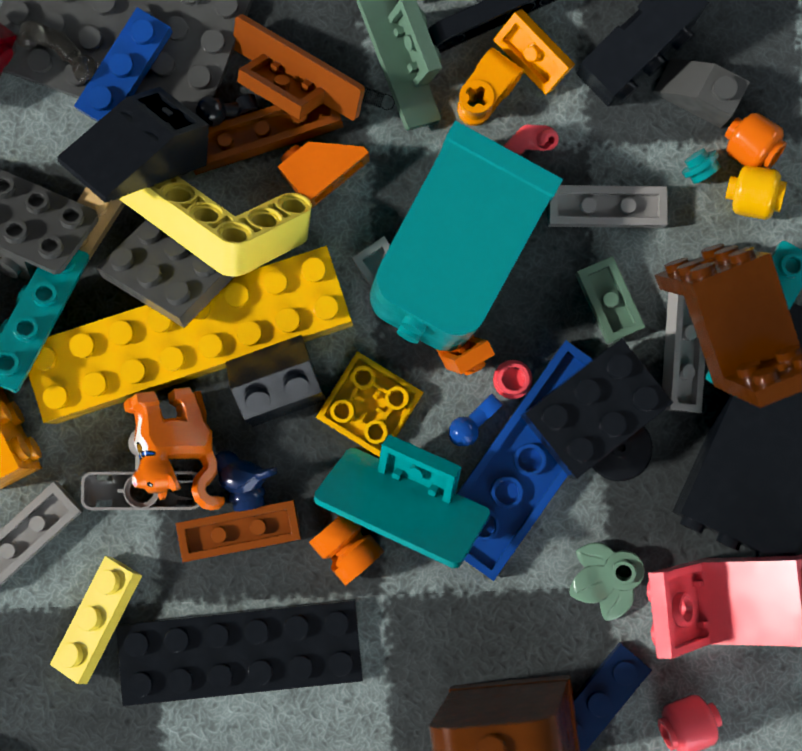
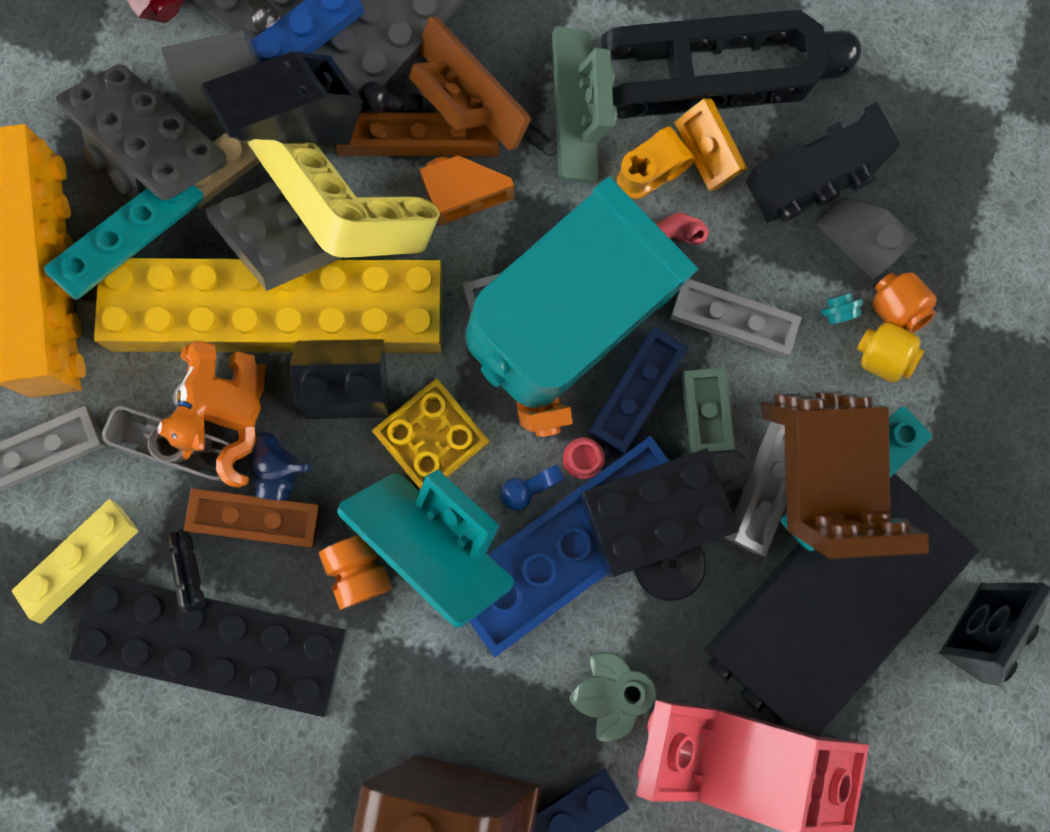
camera: 15 degrees right, 5 degrees down
(51, 134) = (205, 60): none -> dark grey slope
(196, 596) = (185, 571): none -> black axle
(541, 301) = (638, 390): none -> dark blue plate

